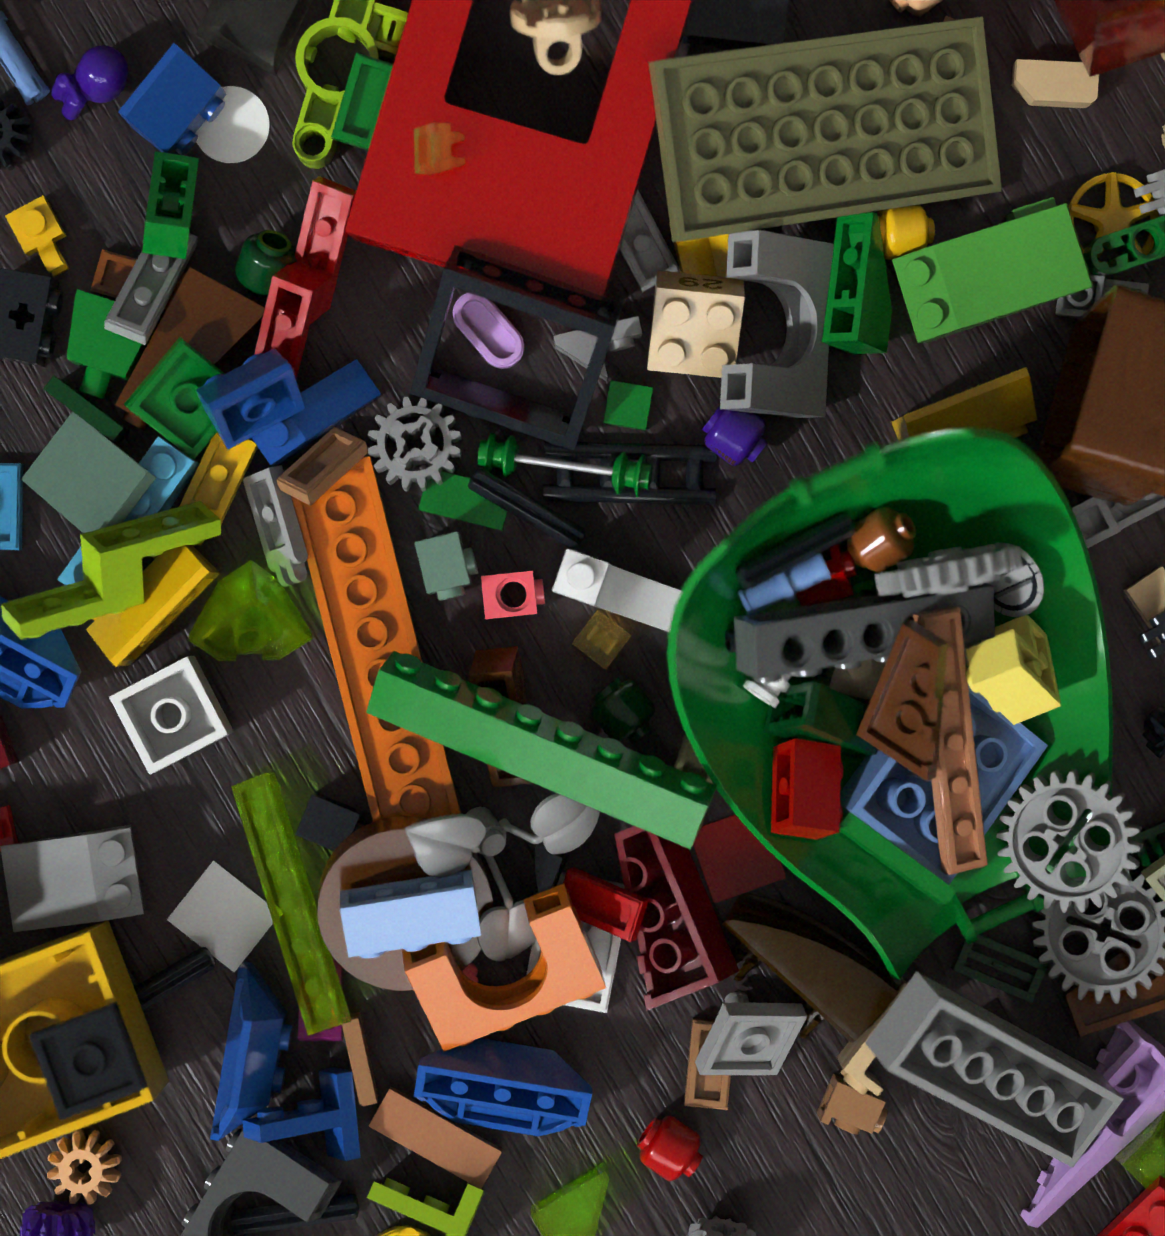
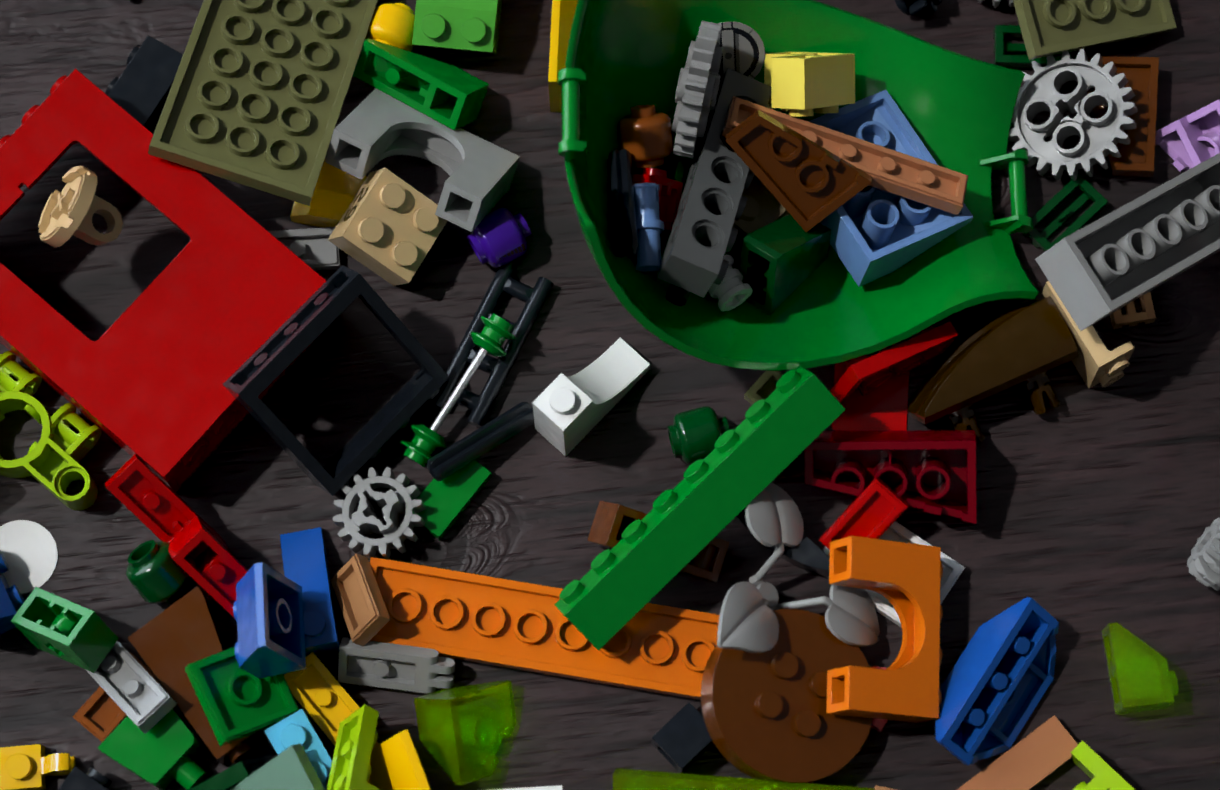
camera: 65 degrees left, 15 degrees down
(362, 101) = (60, 420): green tile -> none
(409, 914) = (799, 683): light blue brick -> none
(433, 148) = (131, 362): tile -> none
(446, 565) = (498, 527): sand green brick -> none
(488, 330) = (313, 409): lavender tile -> none
(492, 588) = (551, 506): coral brick -> none
(580, 345) = (363, 329): light grey slope -> none
(601, 639) = (627, 430): clear yellow tile -> none
(628, 405) = (432, 320): green tile -> none
(670, 1148) = (1111, 562): red head -> none
(704, 1090) = (1049, 498): medium nougat tile -> none
(750, 1037) = (1038, 444): light grey tile -> none
(751, 848) = (869, 372): none -> red wing
(806, 789) = (835, 296): red brick -> none
(852, 1108) = (1137, 389): medium nougat brick -> none
(896, 859) = (929, 250): green tile -> none
(1101, 863) = (1007, 78): light grey gear -> none

